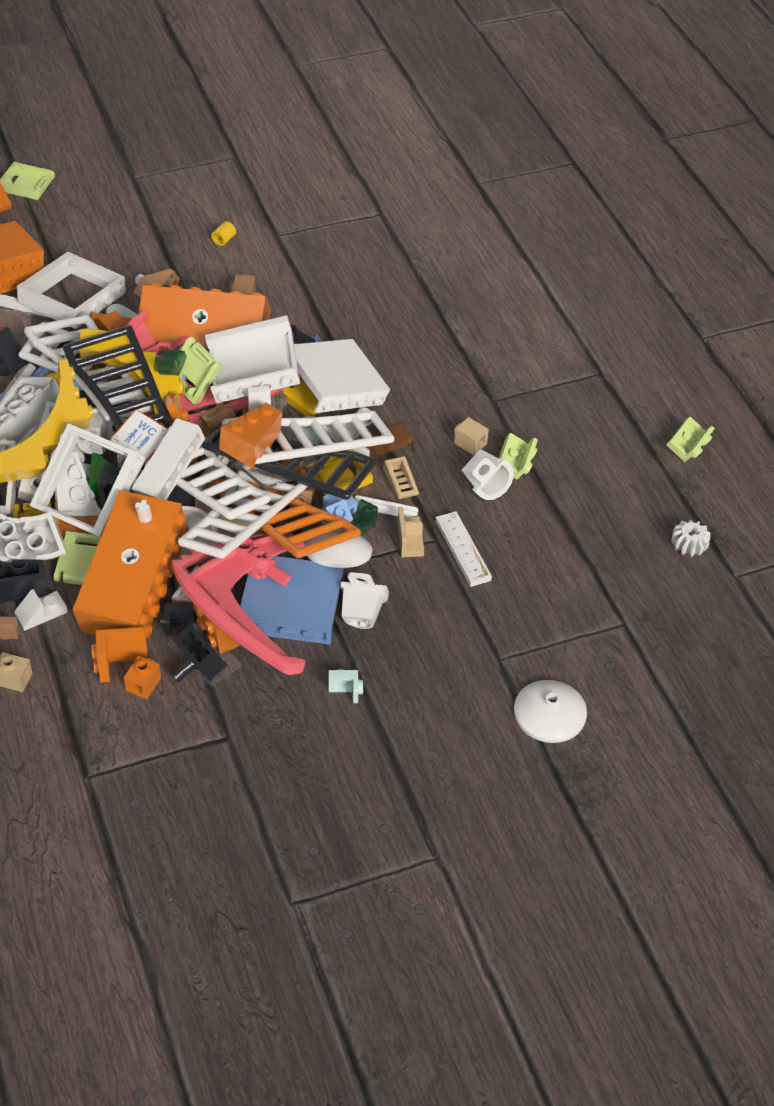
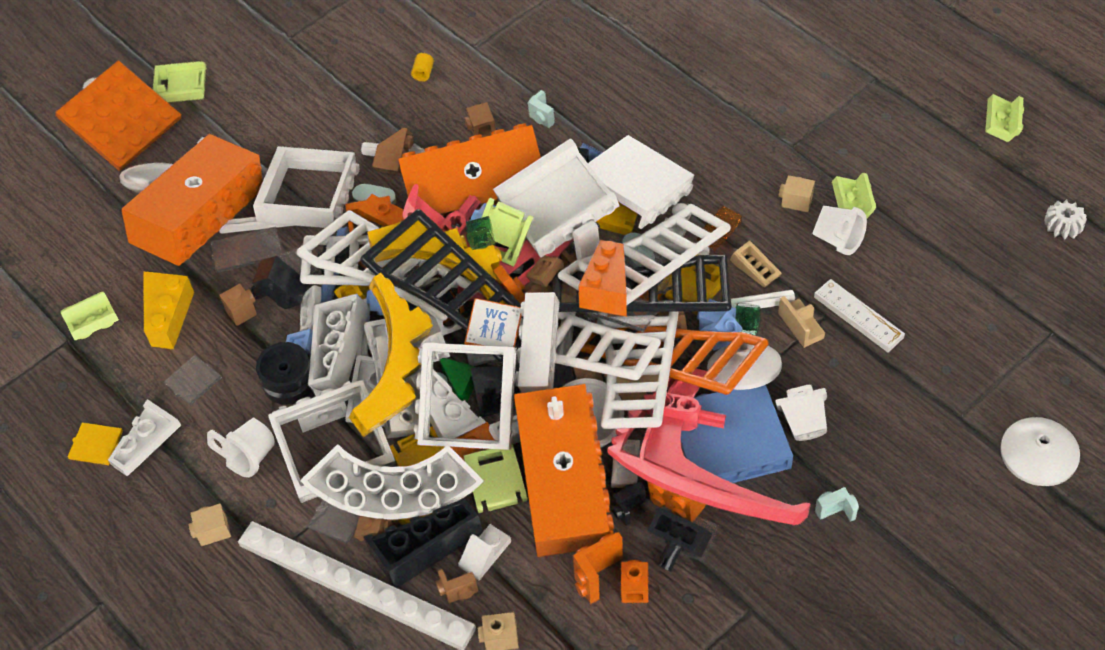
camera: 15 degrees left, 5 degrees up
(297, 297) = (540, 111): none -> light aqua bracket

